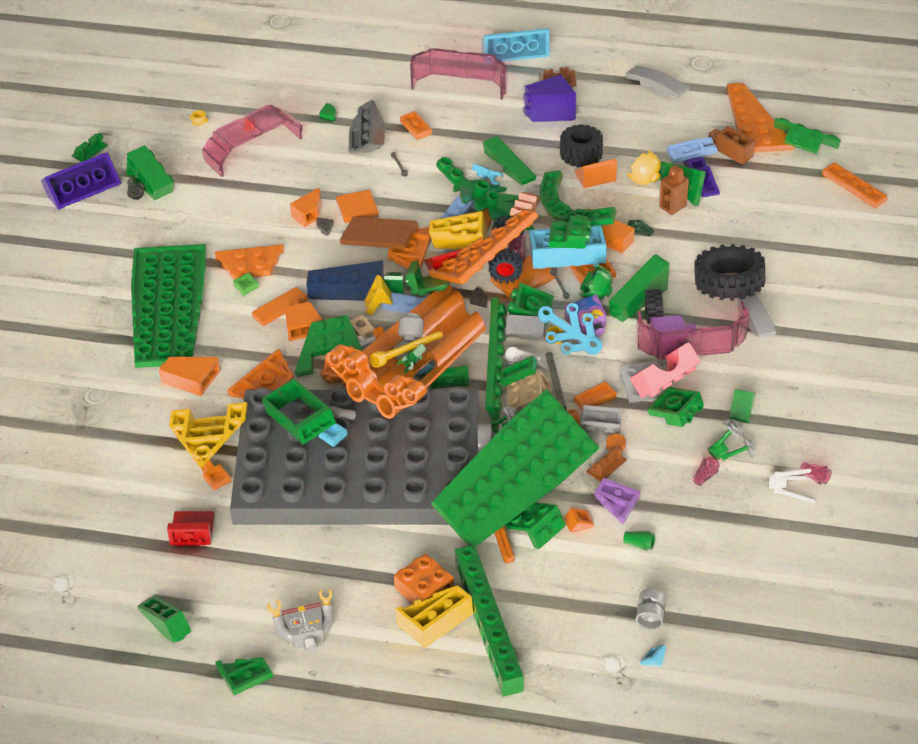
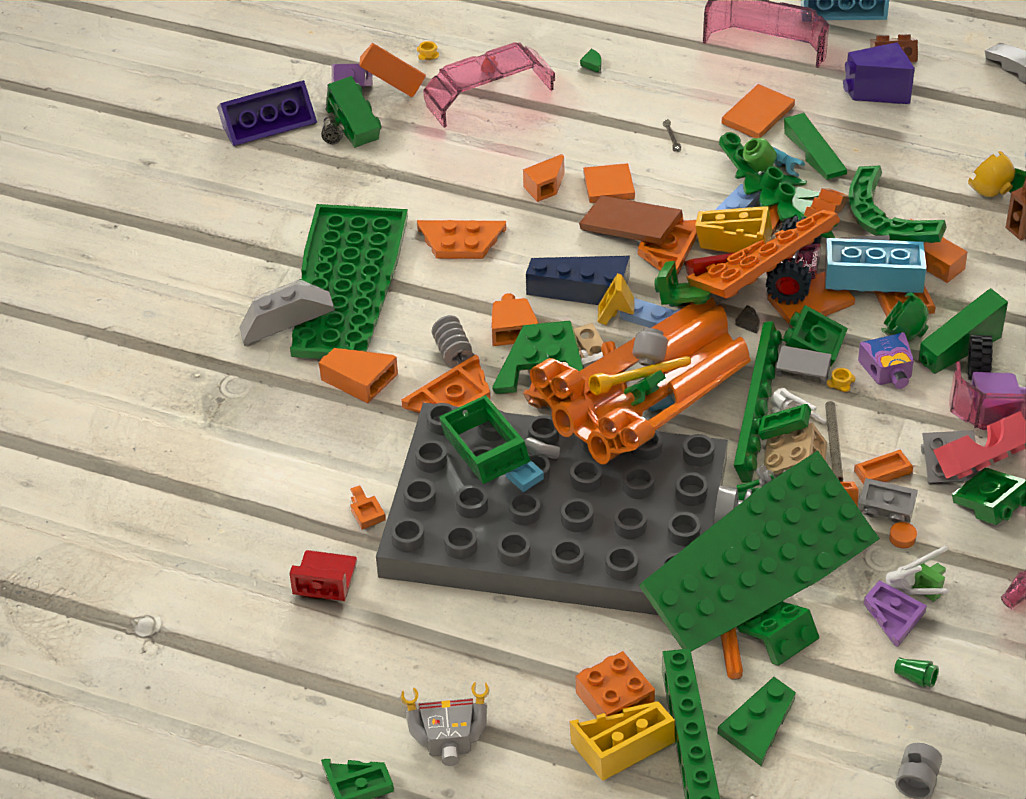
camera: 10 degrees right, 0 degrees up
(88, 150) = (283, 76): green hinge -> none
(124, 332) = (284, 309): none -> light grey wedge
(150, 140) = (342, 71): none -> medium lavender torso
(166, 618) = (268, 692): green slope -> none
(174, 136) = (391, 69): none -> orange slope
(206, 435) = (362, 455): yellow wedge -> none
(245, 284) = (449, 266): bright green plate -> none
(258, 341) = (451, 340): none -> light grey piece
(276, 307) = (482, 301): orange tile -> none
(324, 225) = (563, 202): clear smoke tile -> none
(366, 129) = (637, 87): dark grey wedge -> none
(395, 281) = (641, 285): green slope -> none
(415, 125) = (701, 88): orange plate -> none
(451, 377) = (695, 420): green panel -> none
(462, 138) = (758, 111): none -> orange tile
(468, 171) = (759, 154): none -> bright green head
(531, 589) = (756, 722): none -> green wing
(553, 271) = (851, 296): clear smoke hinge -> none
(570, 234) = (880, 249): green plate -> none
(571, 331) = (864, 378): medium azure plant -> none
(578, 520) = (836, 633): orange slope -> none
(581, 145) = (912, 137): black tyre -> none
(597, 173) = (928, 175): orange slope -> none
(607, 464) = (887, 561): dark orange hinge -> none
(621, 472) = (904, 577): none -> white plant
(640, 226) = (977, 250): clear green arm -> none
(640, 473) = (930, 578): none -> bright green tile

